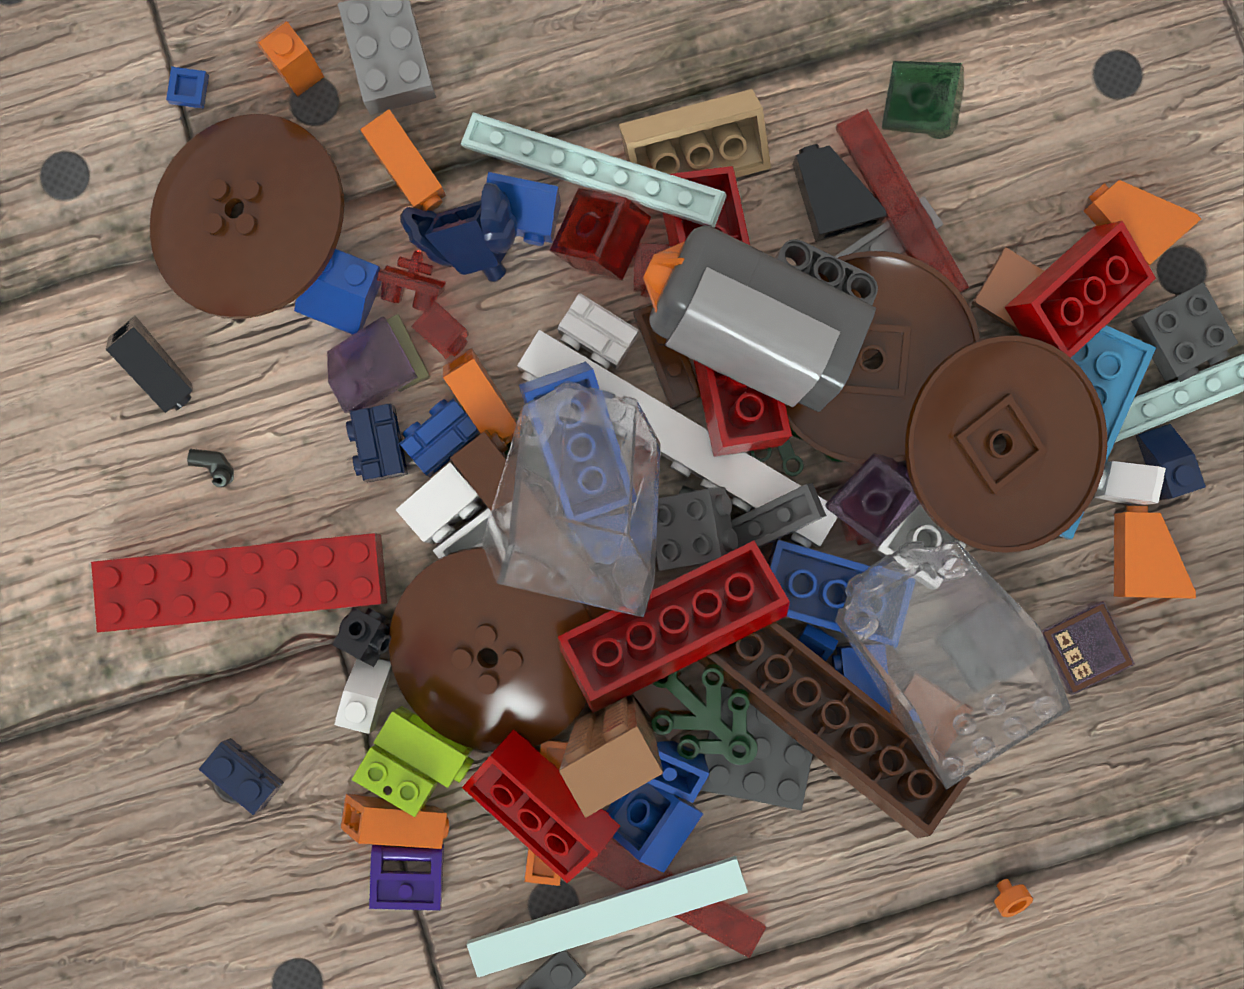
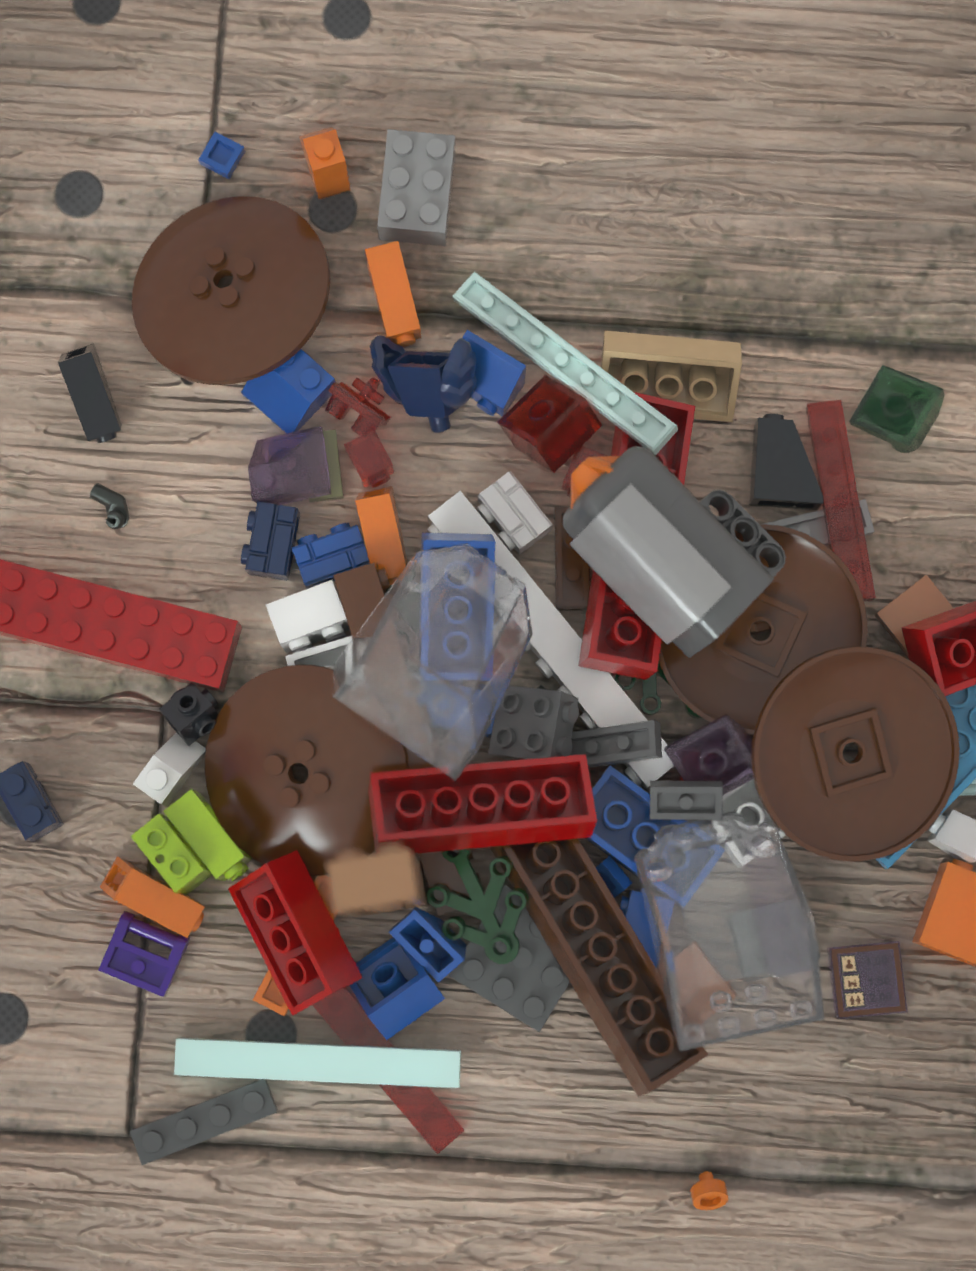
camera: 20 degrees right, 5 degrees down
(863, 547) = (686, 800): none -> dark grey plate

